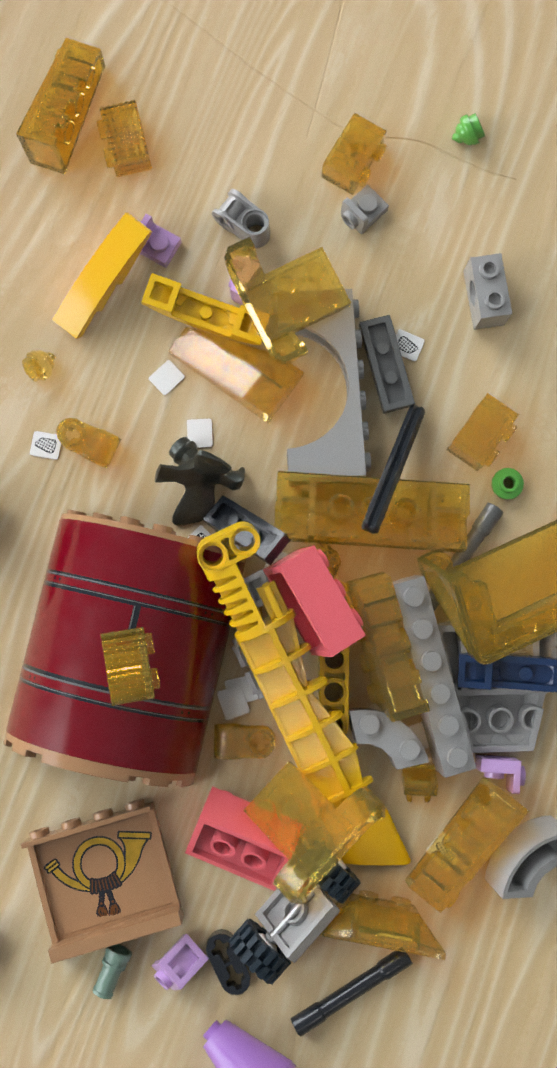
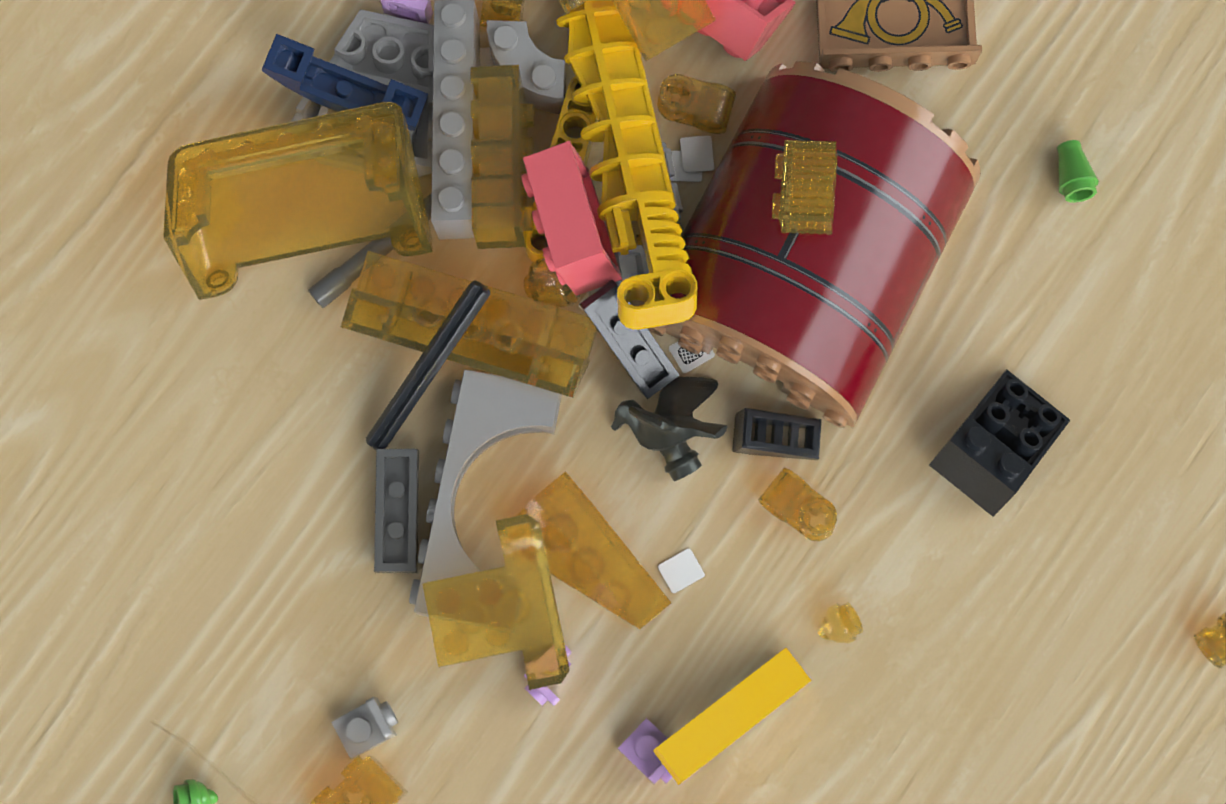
camera: 160 degrees left, 5 degrees down
(45, 445) = (855, 522): white sticker -> none
(144, 489) = (743, 428): none -> black slope
(199, 310) = (617, 643): yellow slope -> none
(200, 432) = (656, 488): white sticker -> none
(239, 214) = (530, 755): light grey piece -> none
(409, 344) = (359, 534): white sticker -> none
(483, 432) = (302, 391): clear yellow brick -> none
(487, 291) = (240, 568): light grey brick -> none
(499, 488) = (294, 335): bright green plate -> none

